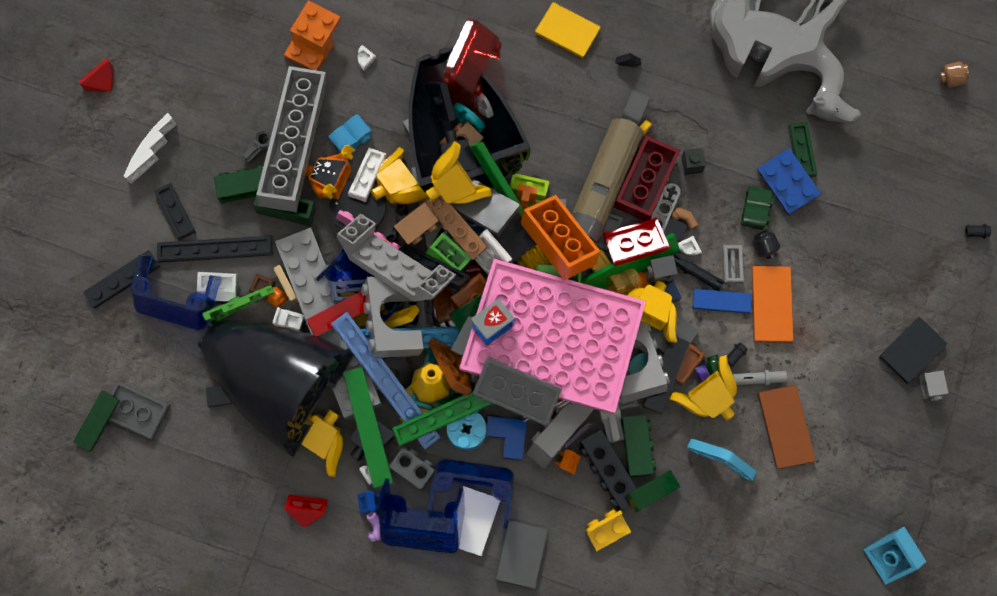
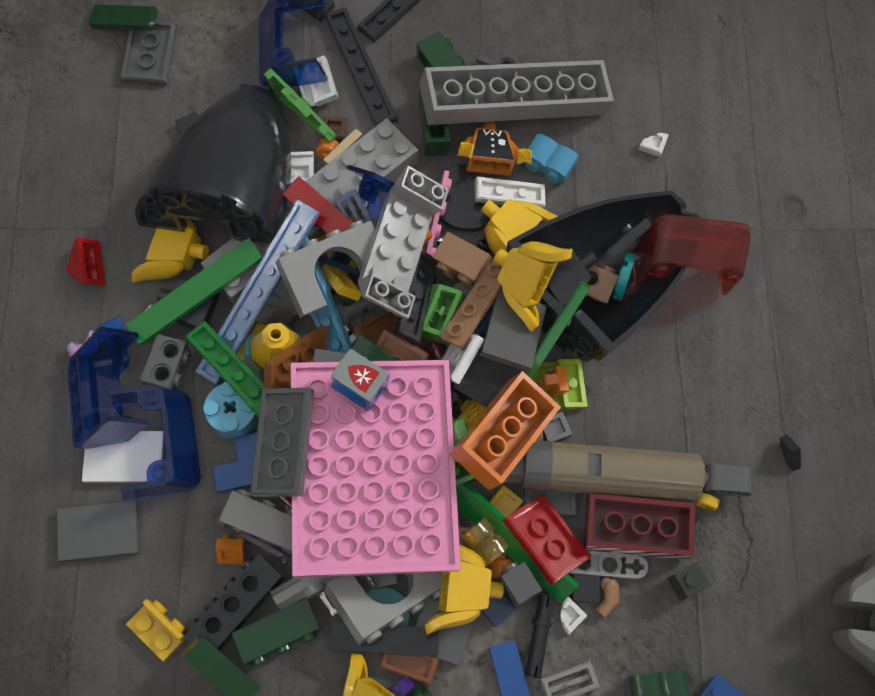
camera: 70 degrees right, 5 degrees down
(312, 36) = (656, 73): orange bracket -> none
(484, 106) = (647, 288): light grey tile -> none
(567, 30) = (797, 364): yellow tile -> none

